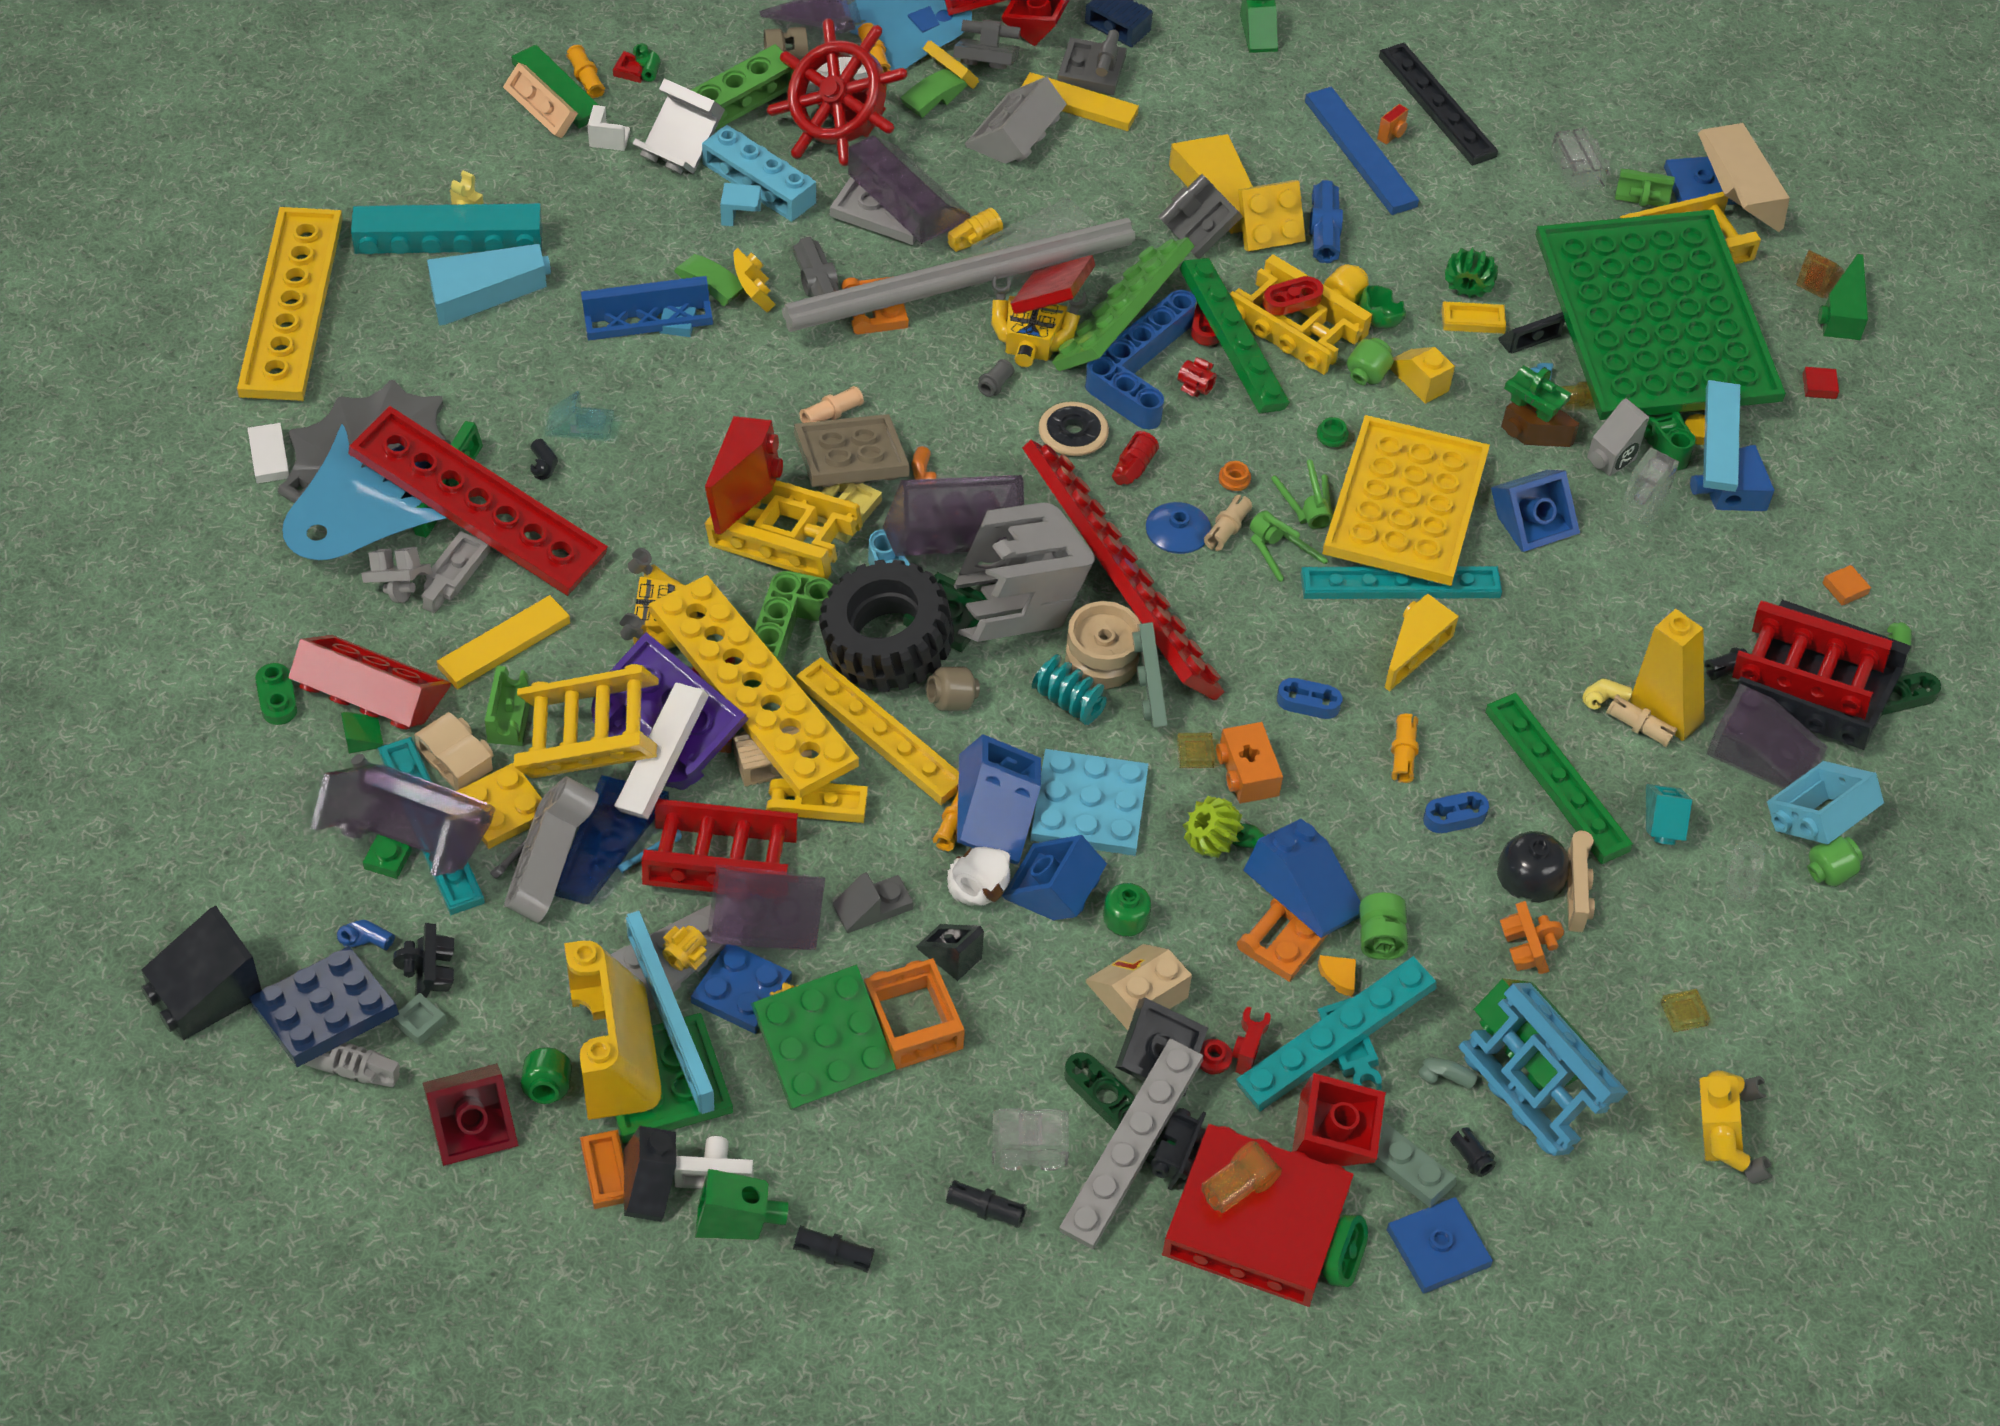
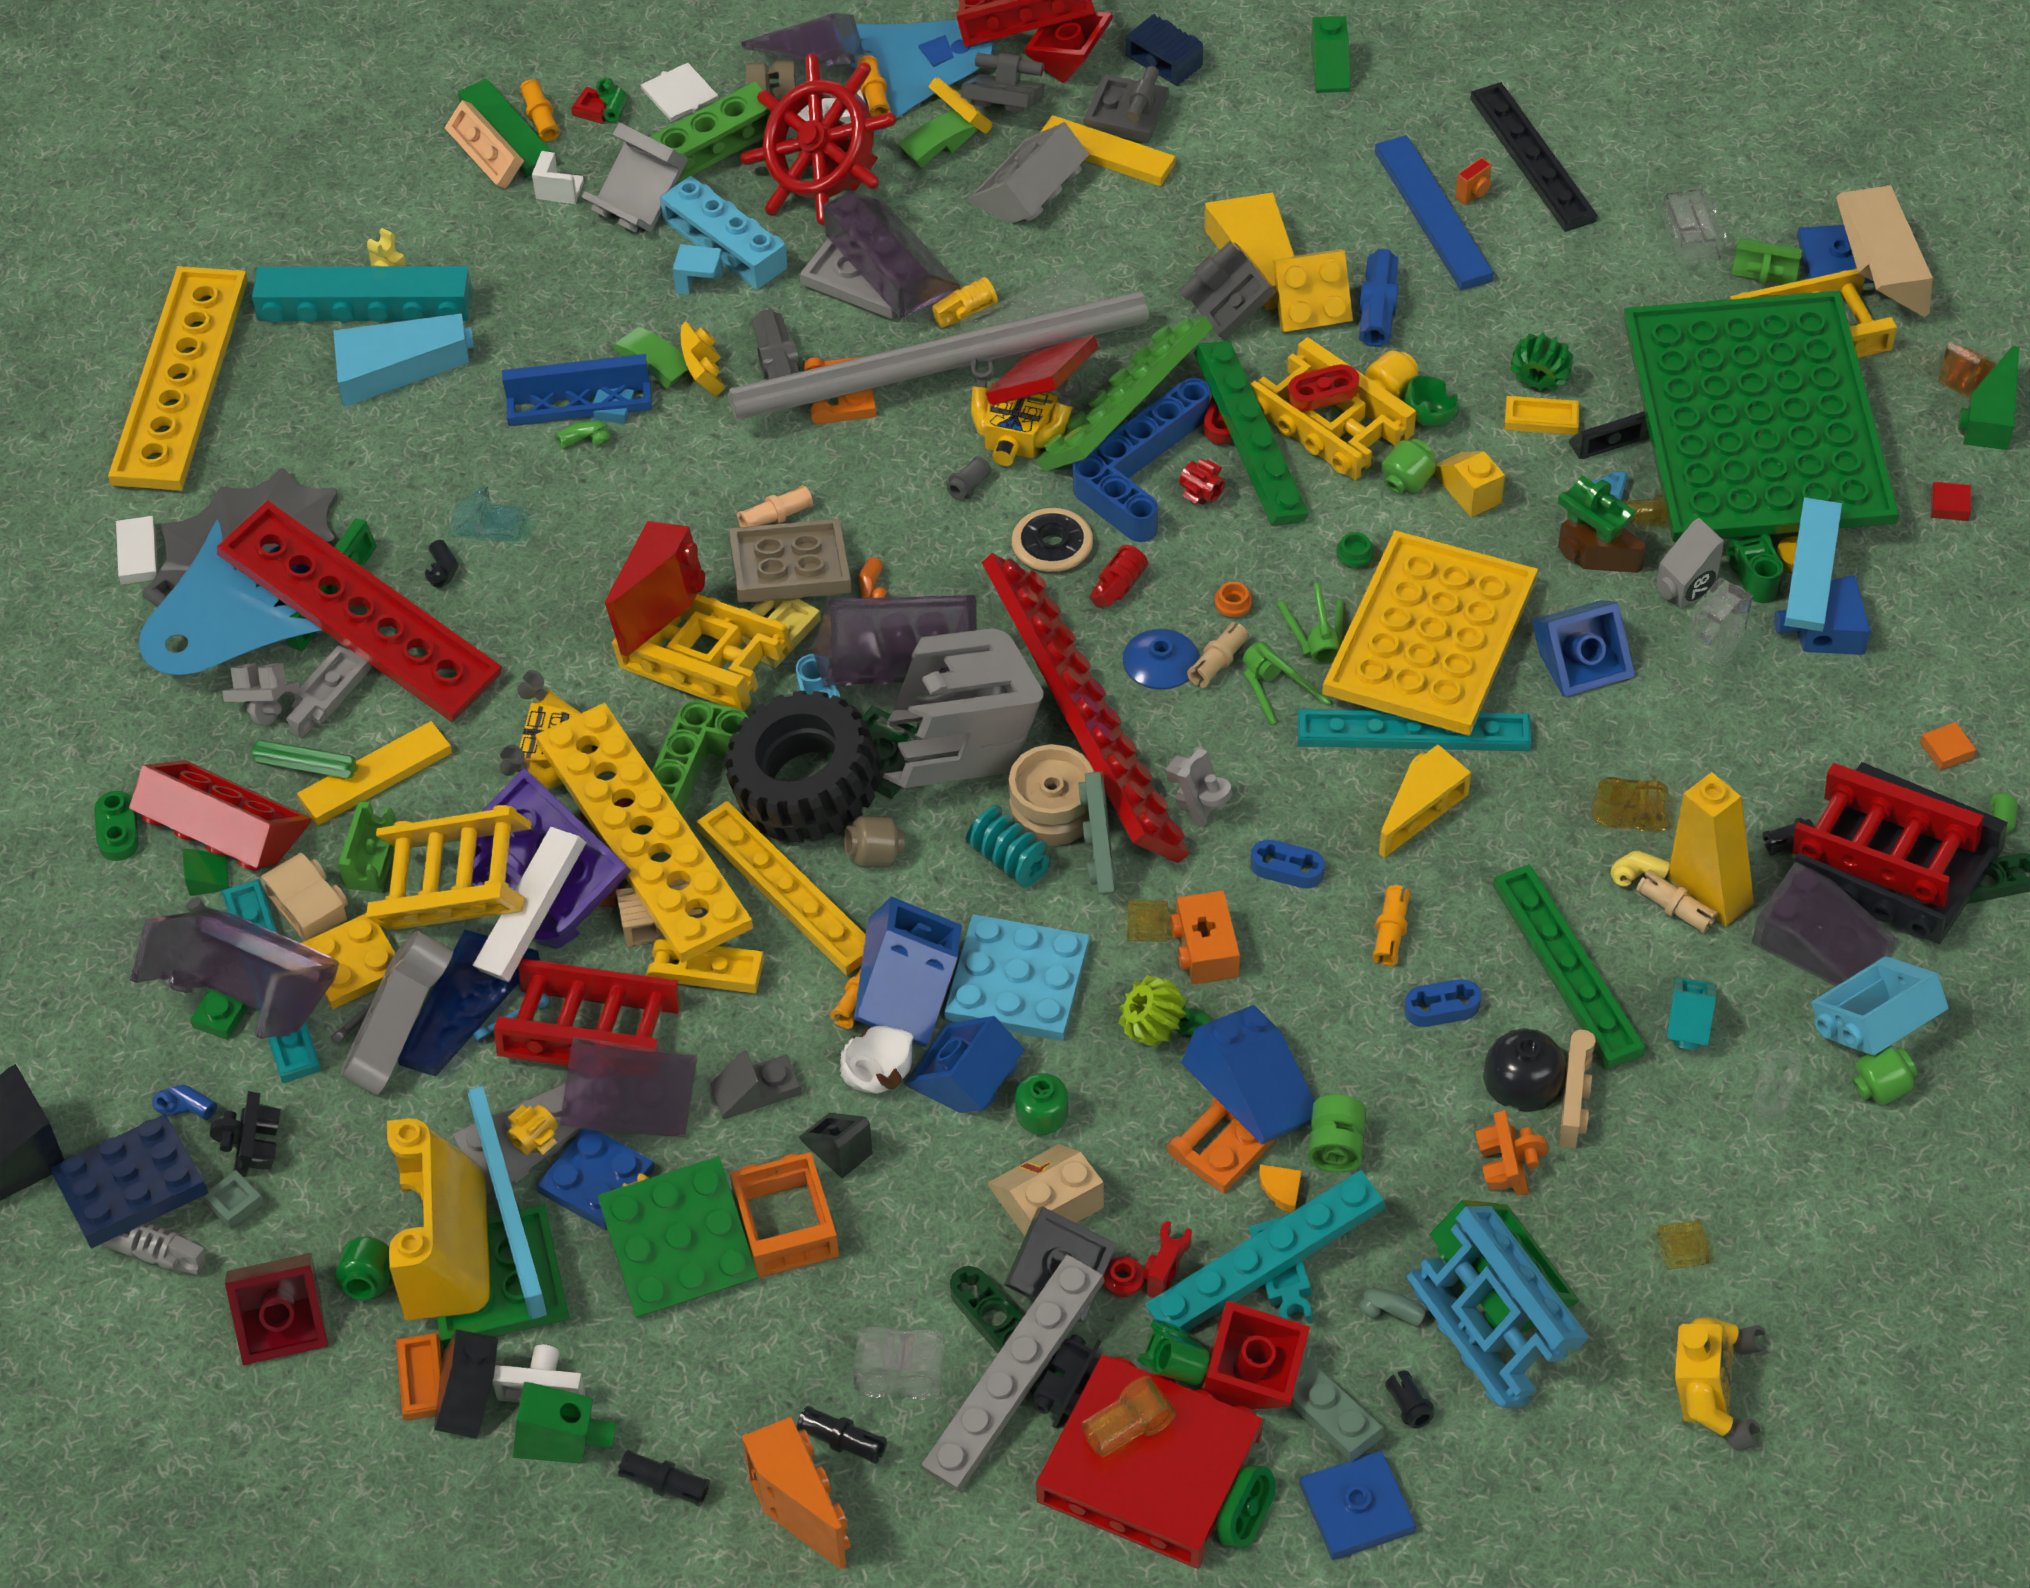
camera: 10 degrees right, 0 degrees up
(441, 631) = (304, 759): none -> green axle
(653, 343) = (581, 430): none -> bright green arm
(705, 55) = (679, 92): none -> white piece
(955, 1254) = (795, 1490): none -> orange slope
(1229, 634) = (1199, 787): none -> light grey hips
(1271, 1121) = (1175, 1354): none -> green piece
(1591, 639) = (1629, 803): none -> clear yellow piece

